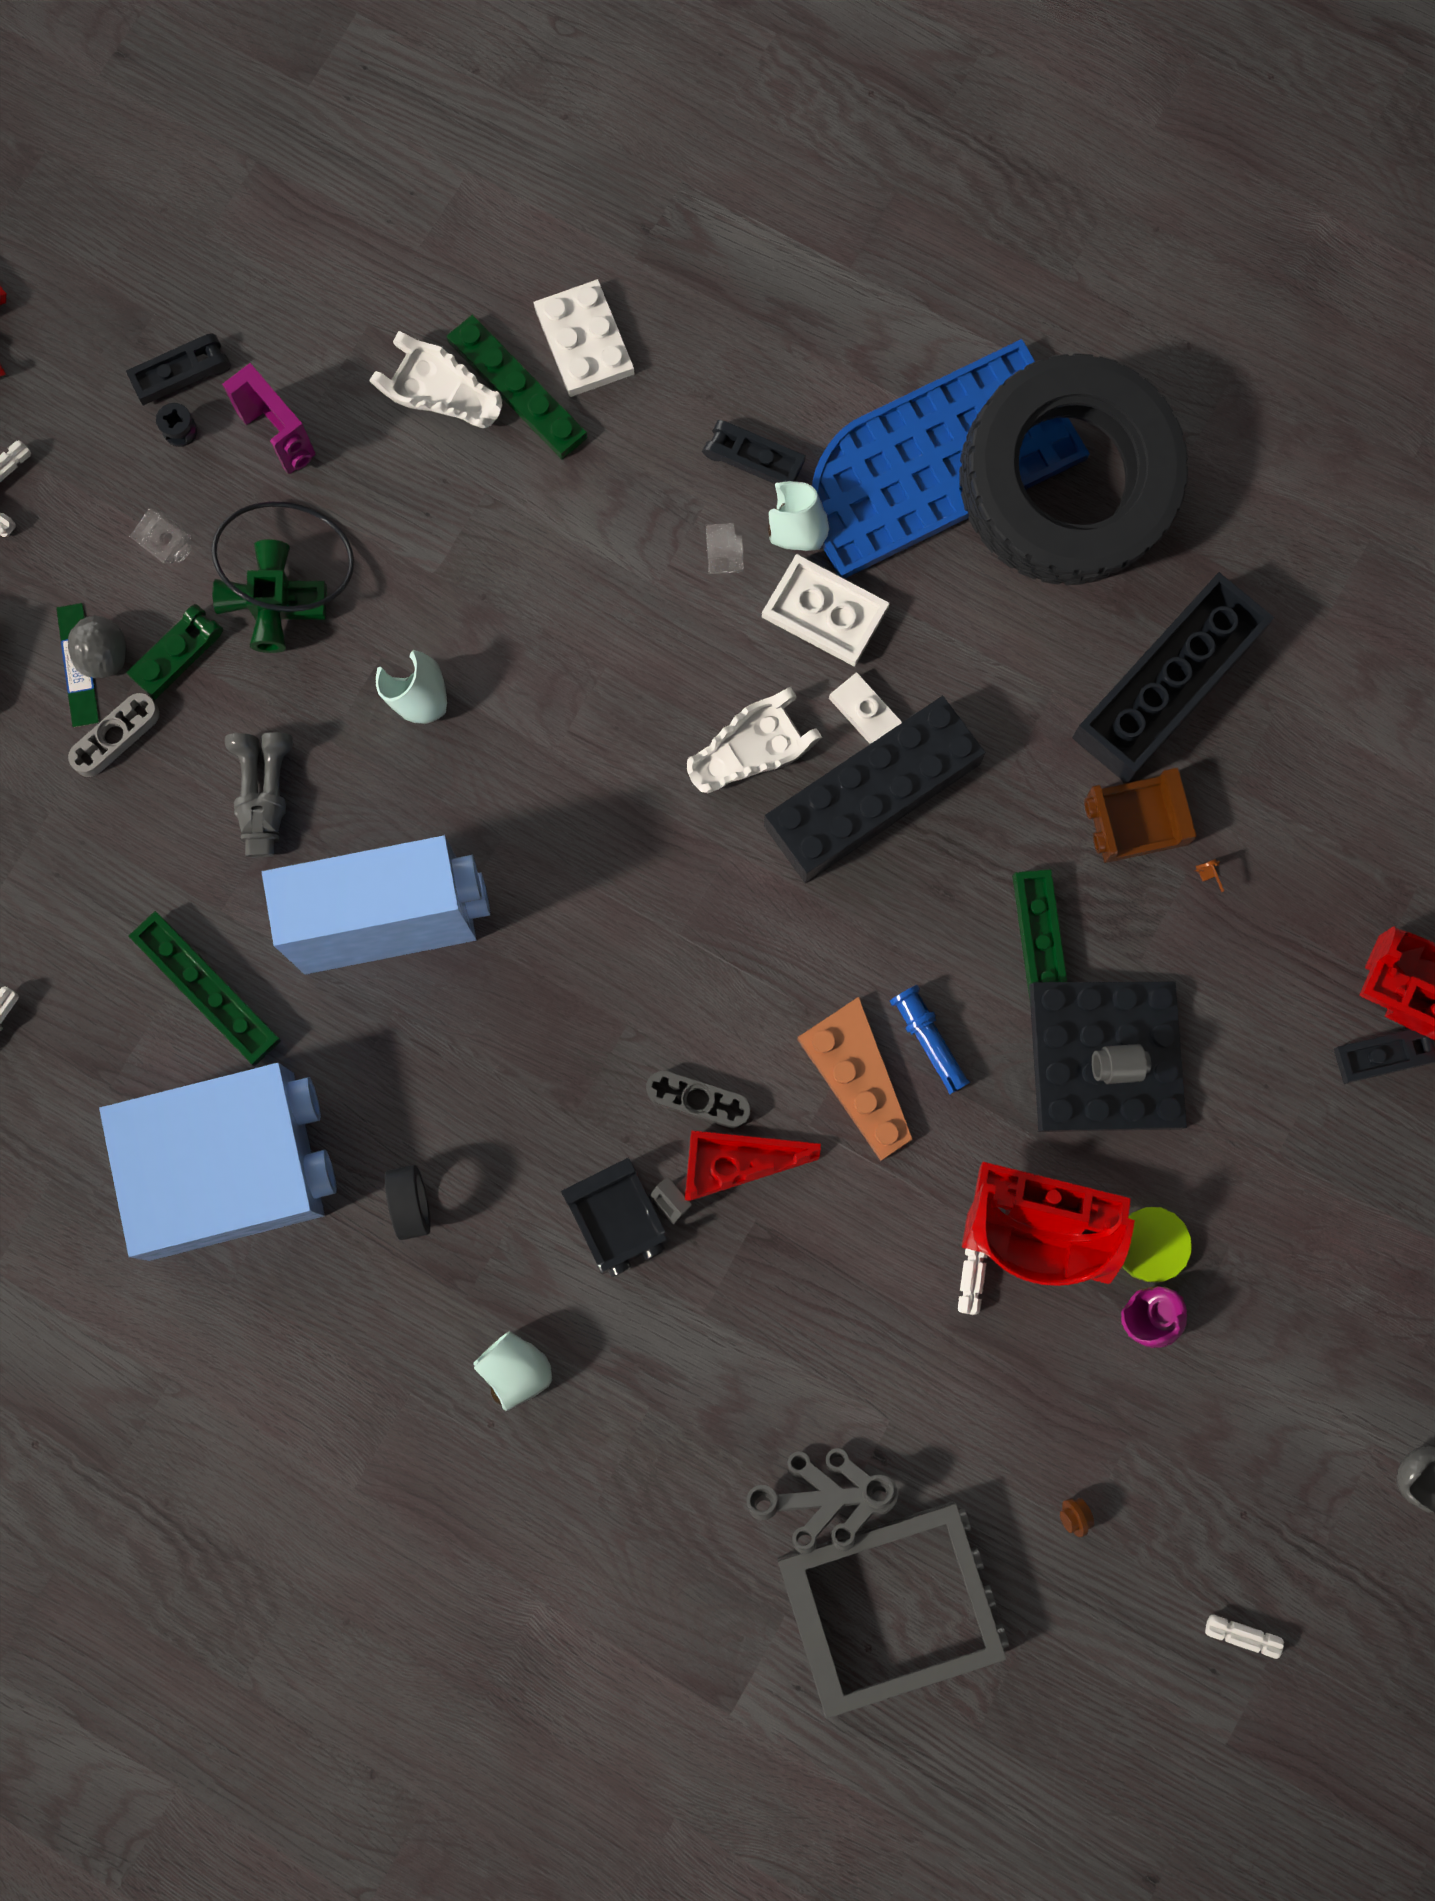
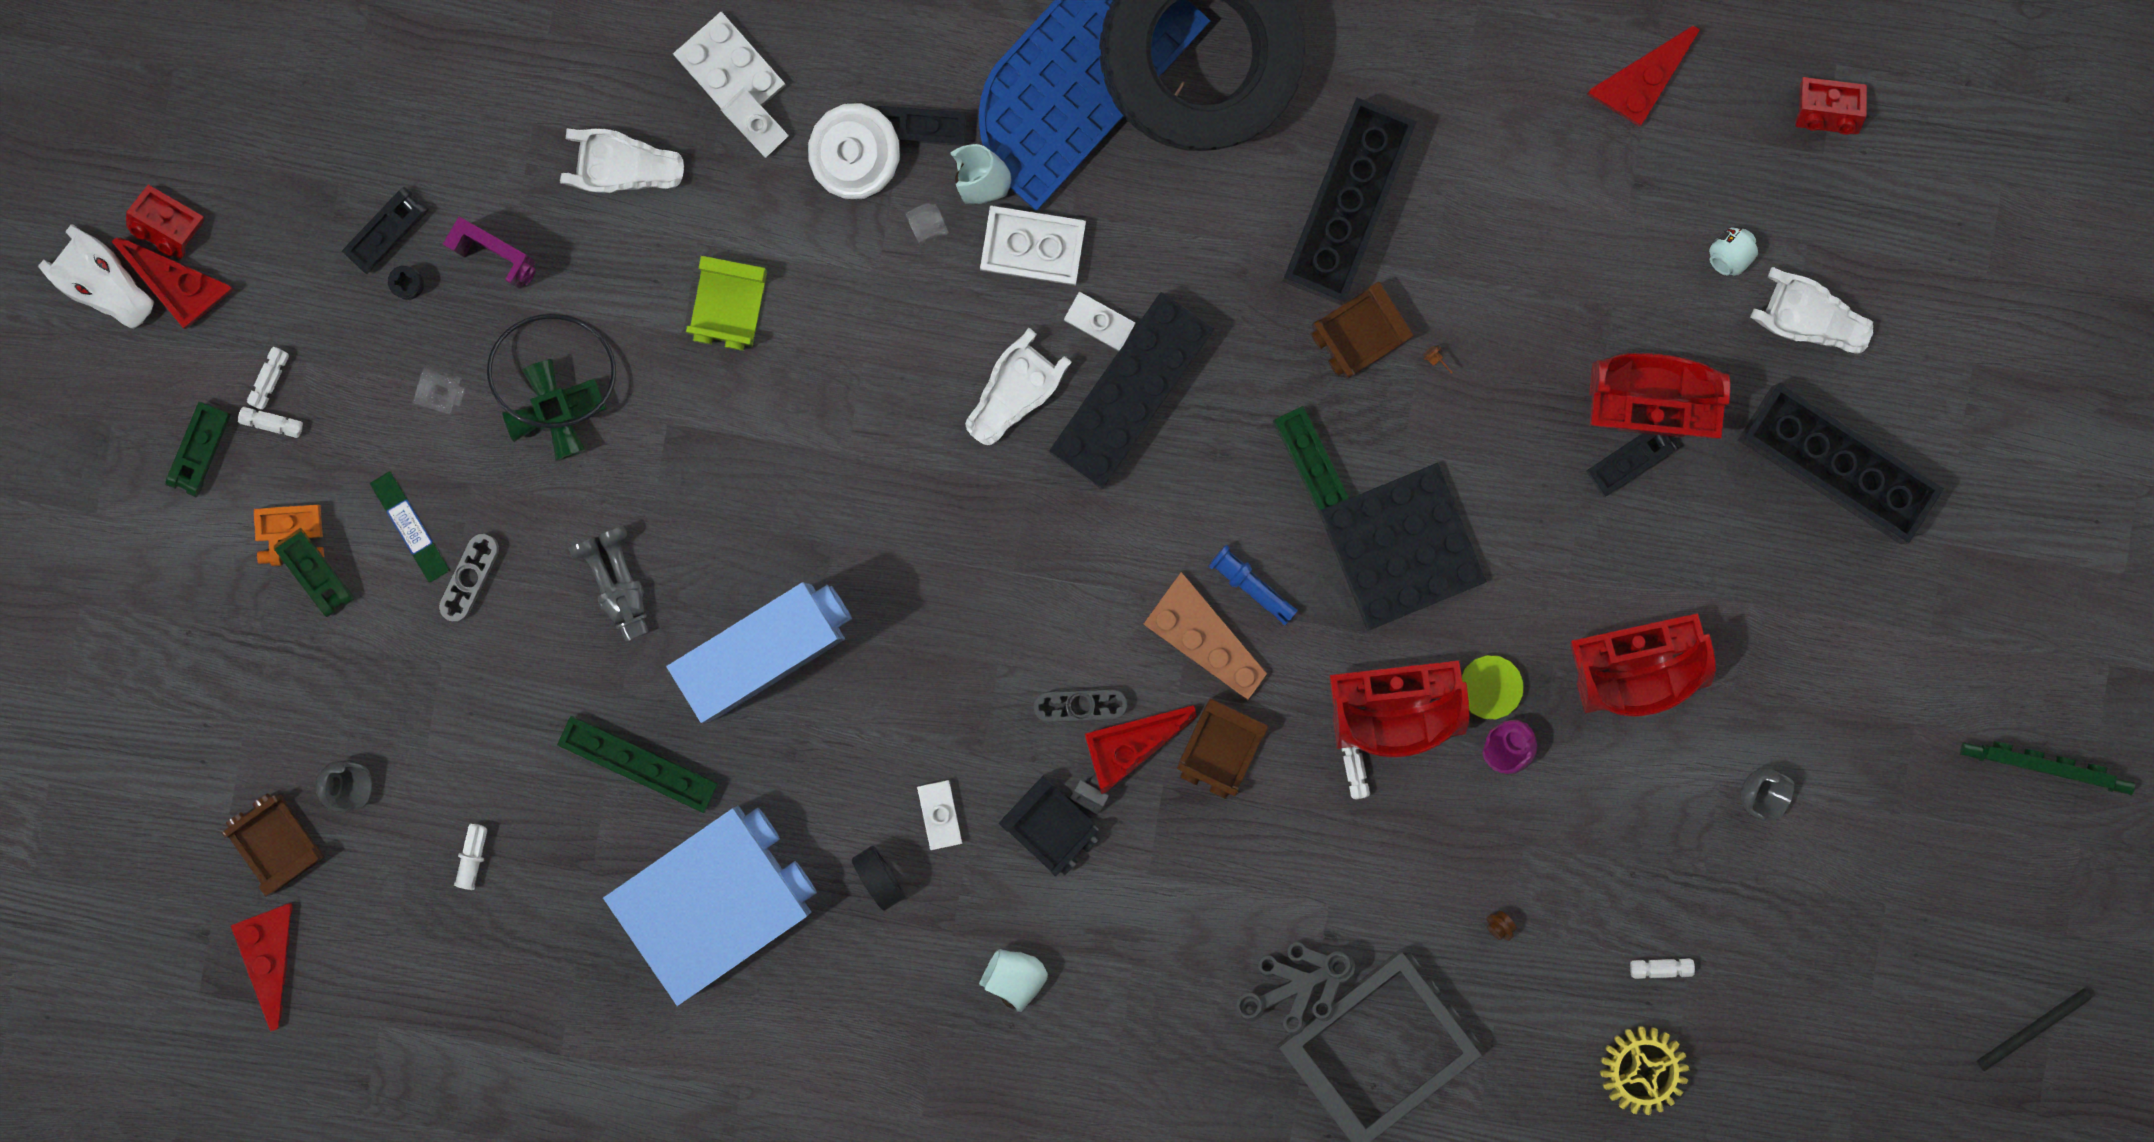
camera: 25 degrees left, 10 degrees up
(97, 647) = (423, 507): dark grey hair -> none
(175, 652) = (489, 486): dark green plate -> none
(419, 696) = (713, 450): light aqua piece -> none
(491, 556) = (727, 303): none -> lime panel
(502, 1161) = (939, 815): none -> white plate
(517, 387) = (688, 136): dark green plate -> none
(588, 391) = (754, 122): none -> white plate
(677, 454) = (853, 151): none -> white piece
(834, 1201) = (1221, 748): none -> reddish brown panel
(1121, 1064) = (1414, 554): dark grey brick -> none
(1189, 1767) = (1657, 1066): none -> light yellow gear
(1330, 1278) = (1641, 667): none -> red piece

